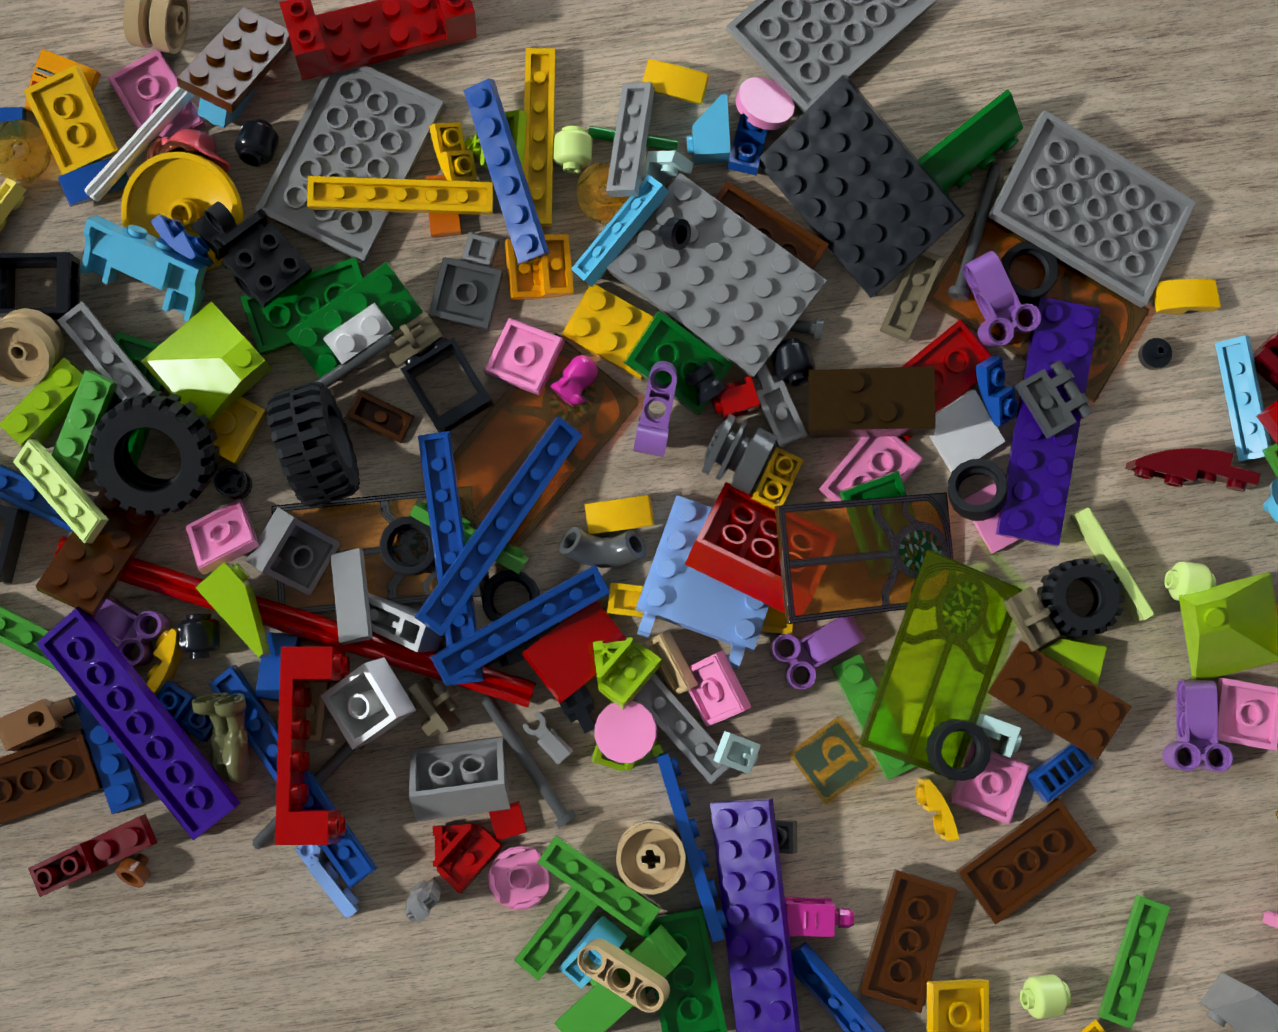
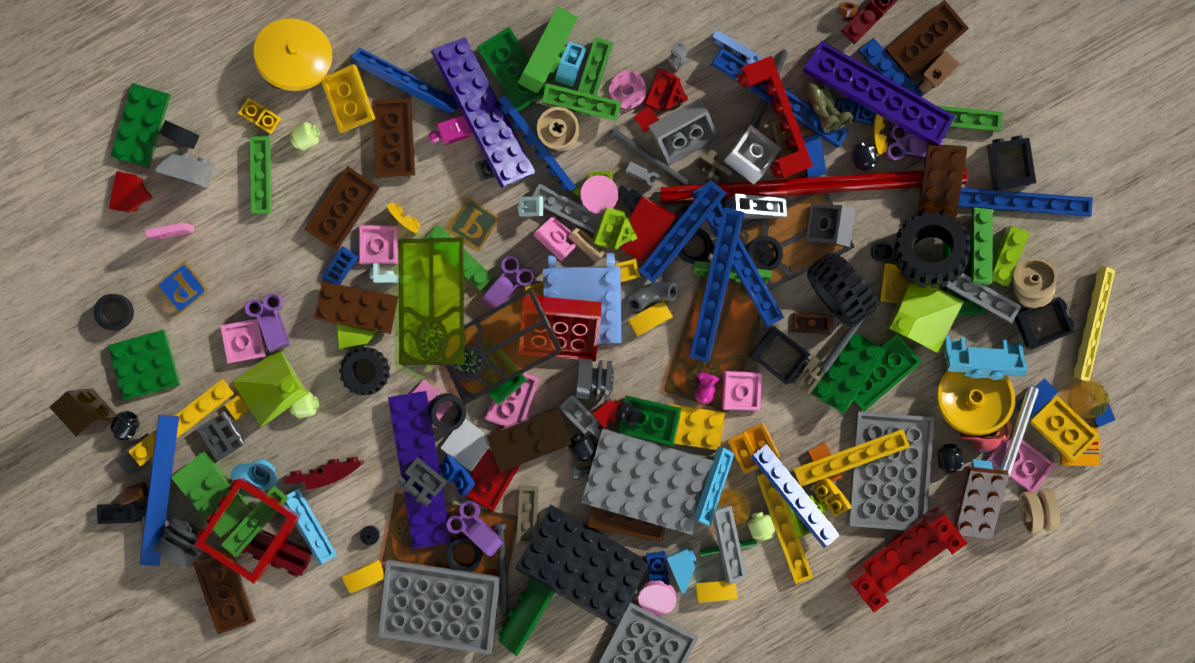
camera: 165 degrees right, 5 degrees up
(60, 491) = (977, 208): yellowish green tile -> none
(176, 236) = (962, 377): blue slope -> none
(222, 536) = (875, 218): bright pink tile -> none
(236, 603) = (850, 182): lime slope -> none
(255, 253) = (920, 388): black plate -> none
(351, 596) = (786, 211): light grey tile -> none
(358, 333) = (843, 365): white plate -> none
(465, 293) = (790, 415): dark grey plate -> none
(480, 250) = (792, 444): light grey tile -> none
(640, 975) = (559, 58): tan beam -> none
(652, 427) = (650, 376): medium lavender piece -> none
(666, 164) = (703, 536): light aqua bracket -> none
(675, 233) = (680, 494): black tile -> none
(777, 478) = (565, 374): yellow slope -> none
(981, 754) = (389, 256): black tyre -> none
(1031, 618) = (389, 347): dark tan hips -> none
(1106, 553) = (352, 398): yellowish green tile -> none

